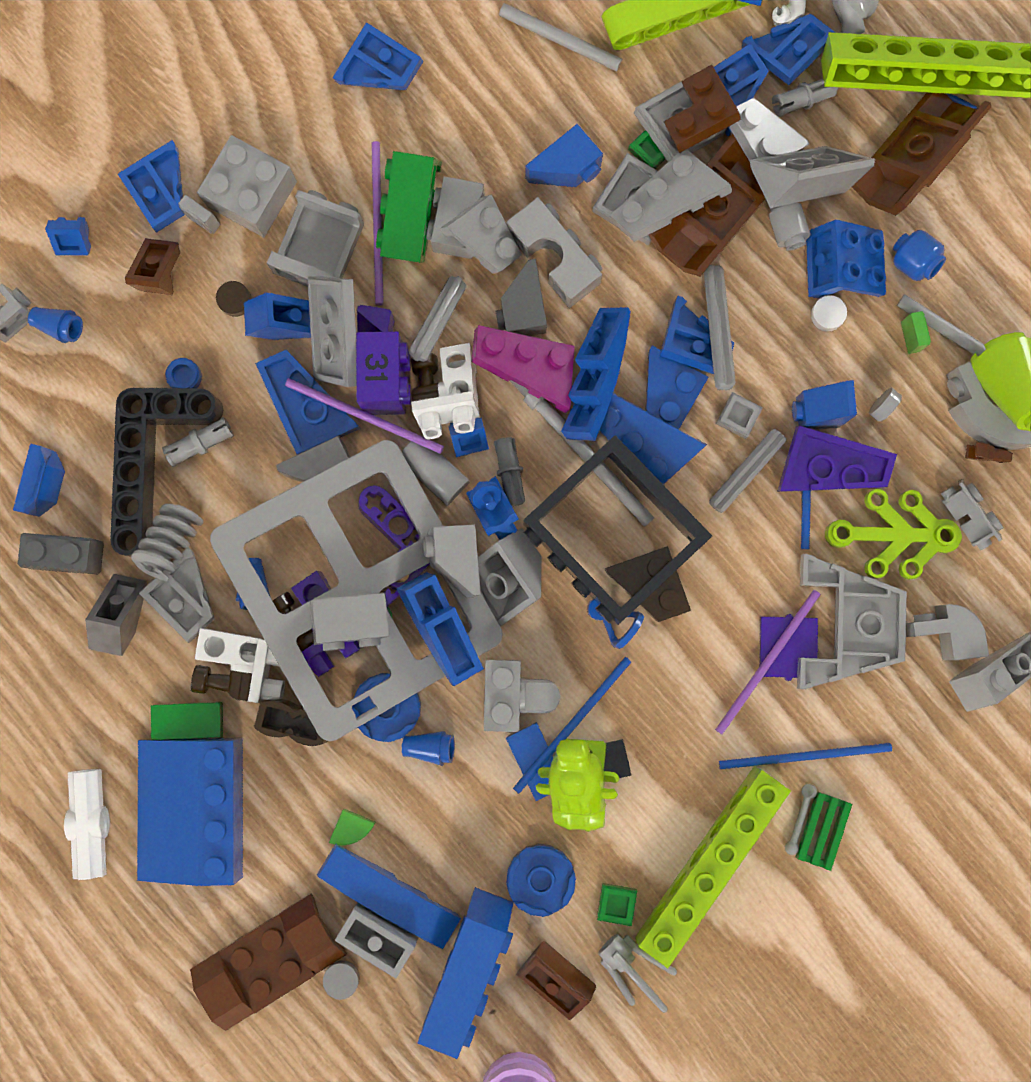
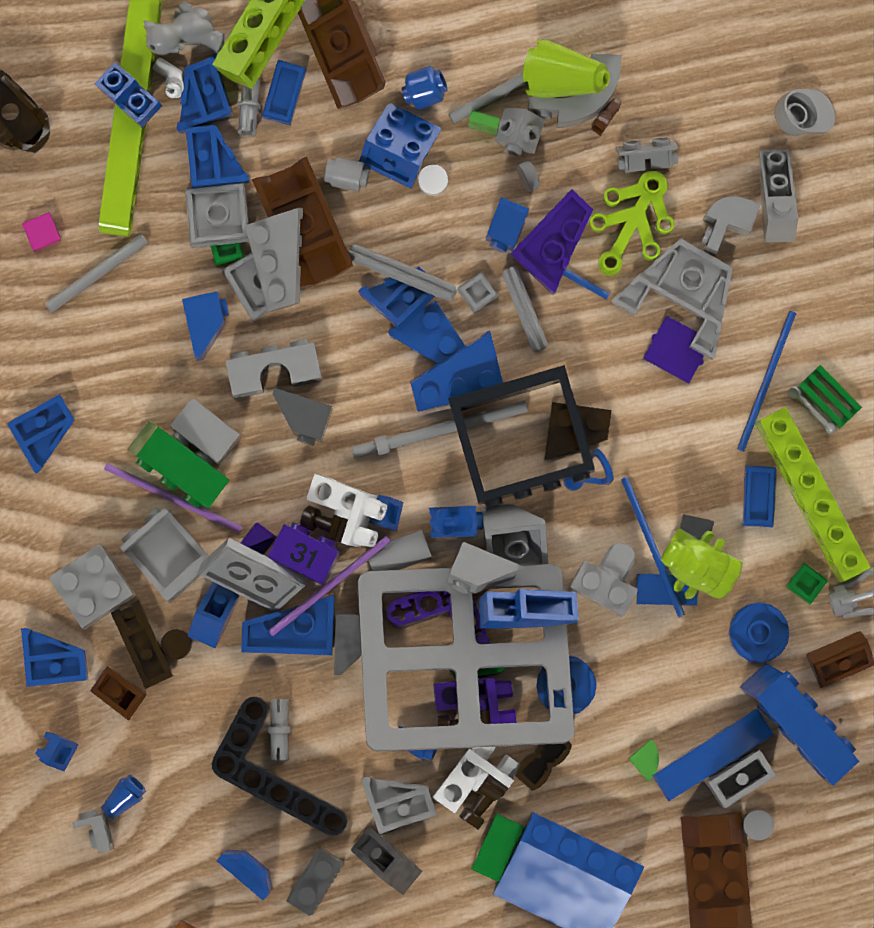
camera: 70 degrees left, 0 degrees up
(164, 539) = (348, 792): light grey piece -> none
(183, 374) = (218, 715): blue tile -> none
(199, 214) = (94, 637): light grey tile -> none
(215, 265) = (142, 645): none -> dark brown plate
(349, 619) = (488, 674): light grey brick -> none
(430, 747) = (615, 665): blue cone -> none
(437, 319) = (280, 489): light grey axle -> none
(484, 235) = (234, 417): light grey wing -> none
(510, 470) = (430, 494): dark grey axle -> none
(529, 361) = (352, 435): magenta wing -> none
(598, 374) = (386, 382): blue slope -> none
(681, 808) = (759, 496): none -> blue tile
(710, 110) = (230, 191): reddish brown plate -> none
(764, 133) = (266, 157): wing -> none
(767, 662) = (680, 371): medium lavender axle -> none
(808, 174) = (315, 140): light grey slope -> none
(837, 124) = (284, 92): none -> blue tile
(927, 371) = (519, 131): none -> light grey brick

